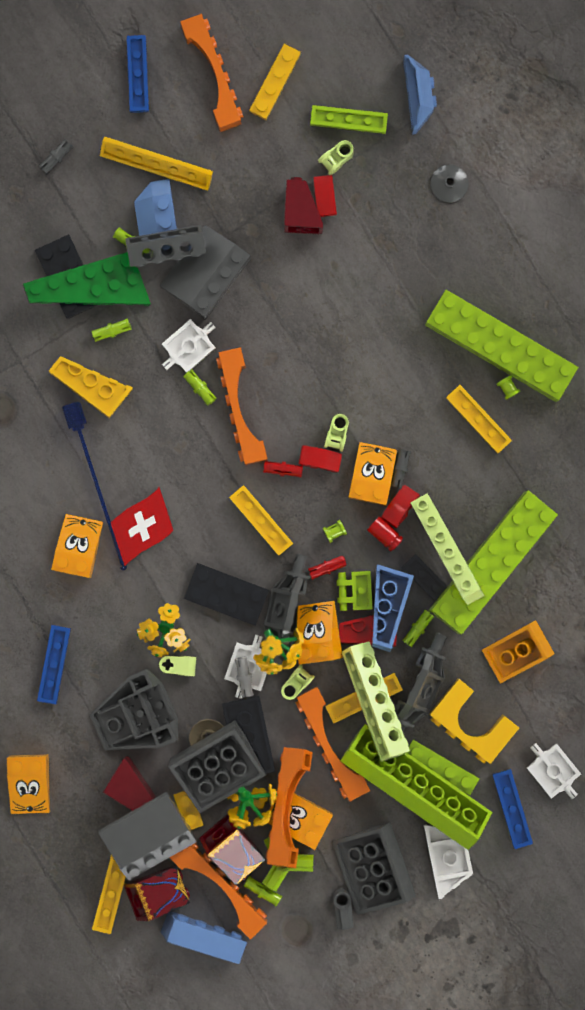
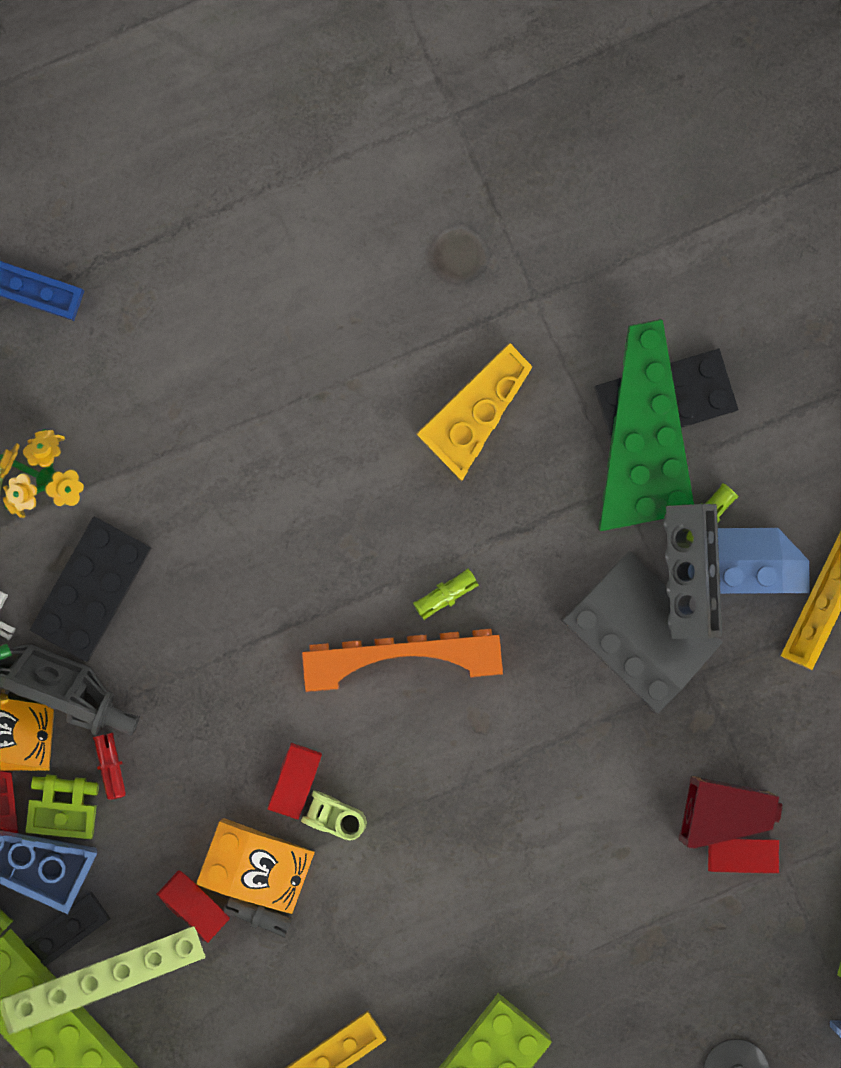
camera: 100 degrees right, 0 degrees up
(77, 546) = (207, 350): light orange slope -> none
(111, 330) = (564, 458): lime pin -> none
(138, 525) = (229, 459): red flag -> none
(188, 346) = (519, 585): white plate -> none
(261, 520) = (205, 665): yellow plate -> none
(283, 469) = (286, 715): red pin -> none
(334, 531) = (168, 787): lime bush -> none
(335, 157) = (806, 880): yellowish green piece -> none
(385, 534) = (150, 873): red piece -> none

